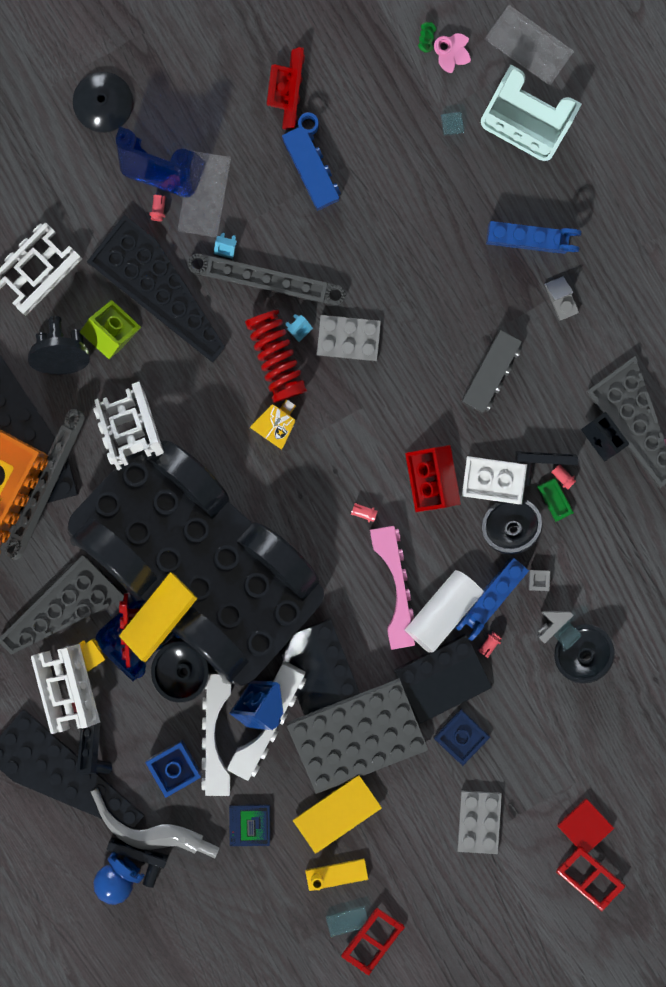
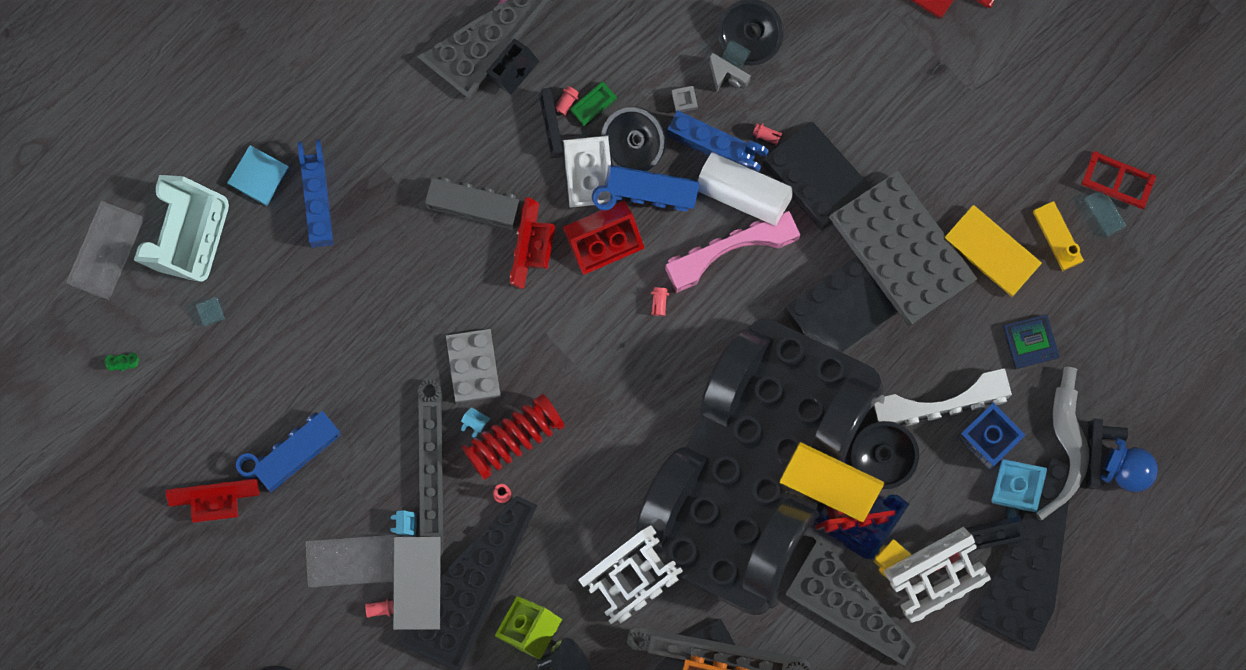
camera: 110 degrees left, 10 degrees down
(126, 780) = (1019, 485): none -> medium azure tile
(170, 243) = (417, 583): none -> light grey tile
(174, 176) = (342, 616): clear blue windscreen -> none
(231, 340) = (502, 499): none -> coral pin
(247, 756) = (957, 360): white arch -> none
(259, 705) = (898, 357): blue slope -> none
(276, 424) = (587, 419): yellow torso -> none
(442, 415) = (533, 244): none -> red bracket
(454, 53) = (132, 328): bright pink plate -> none
(461, 737) = (874, 140): dark blue tile -> none
(467, 526) = (647, 186): none -> blue hinge
(479, 822) = (960, 100): light grey plate -> none
(561, 298) = (373, 149): light grey slope -> none
(563, 192) = (258, 175): none -> medium azure tile

